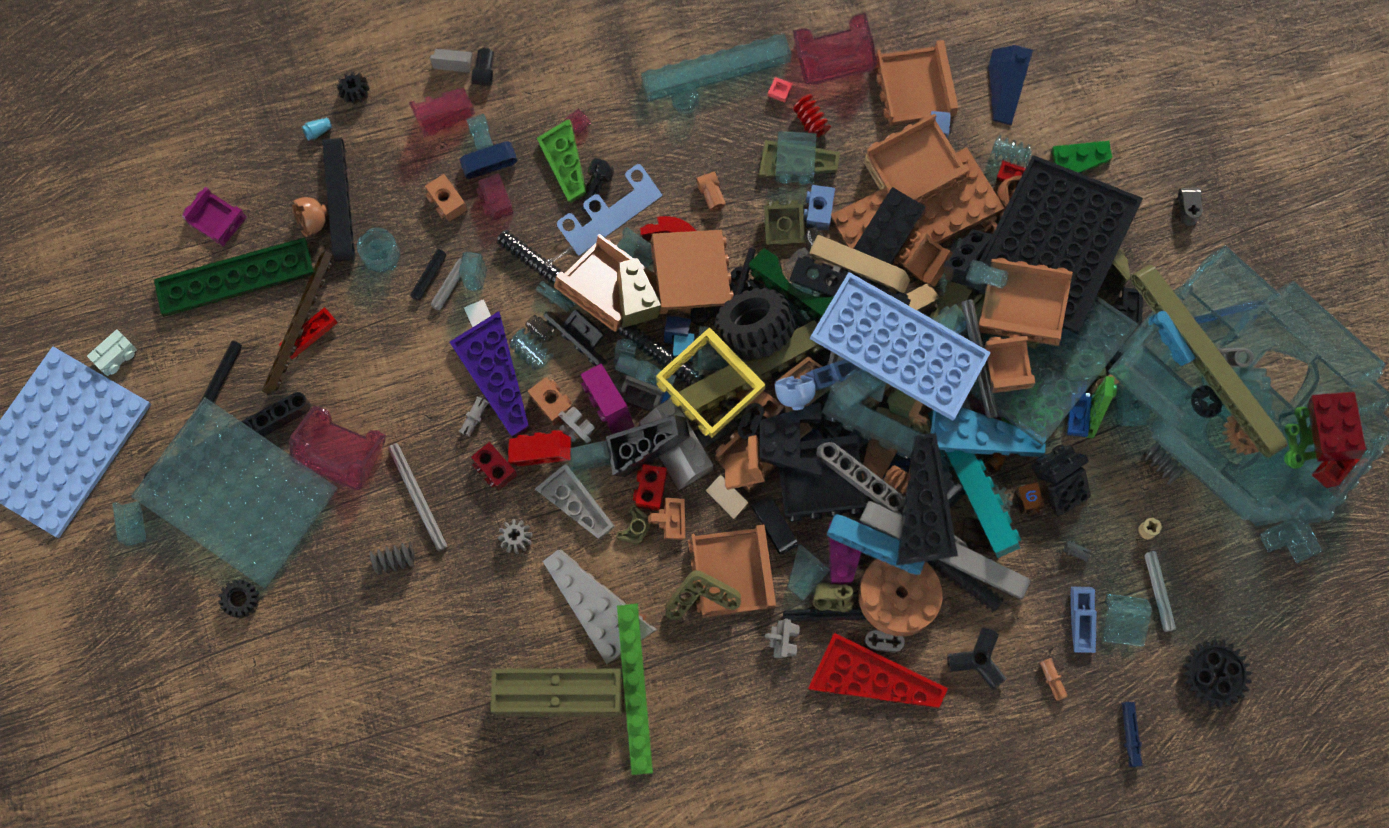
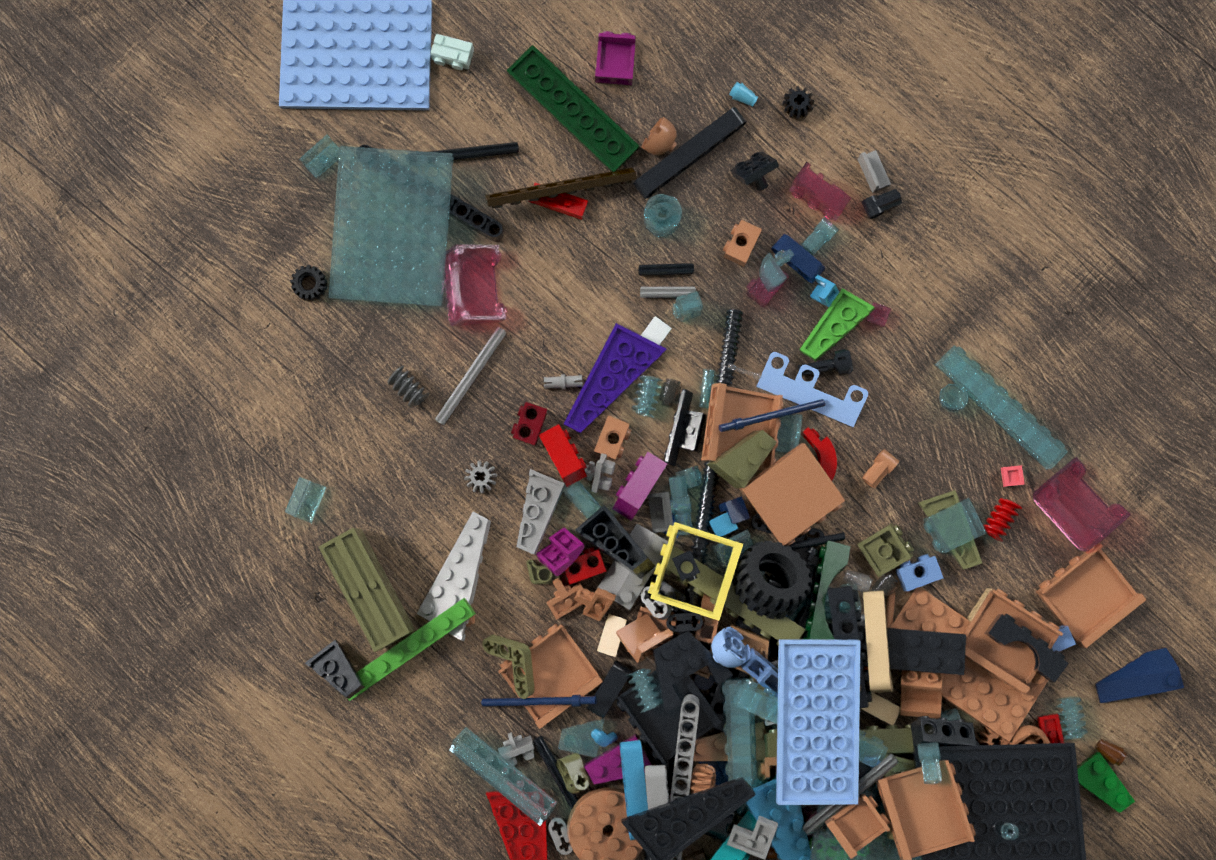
camera: 60 degrees right, 10 degrees up
(388, 152) = (755, 169): none -> black plate
(439, 712) = (305, 499): none -> clear light blue panel
(485, 184) = (770, 270): none -> clear light blue brick
(530, 152) = (825, 291): none -> dark azure panel
(602, 279) = (739, 423): none -> dark blue bar
(615, 767) = (336, 669): none -> black wing
(626, 499) = (561, 552): none -> magenta slope
(690, 492) = (595, 603): none -> nougat hinge
(694, 378) = (678, 560): none -> black brick
(720, 441) = (652, 605): none -> light grey beam
(767, 556) = (575, 701): none -> dark blue bar
(791, 486) = (645, 689): none -> clear light blue piece
(800, 660) = (503, 776): none -> clear light blue brick
(816, 553) = (602, 738): none -> dark azure arm
(952, 139) = (1047, 663): none -> black arch
(979, 459) = (756, 841): none -> light grey plate
(1058, 136) = (1111, 752): none -> reddish brown cone
(1076, 239) = (1004, 831): none -> clear light blue hinge

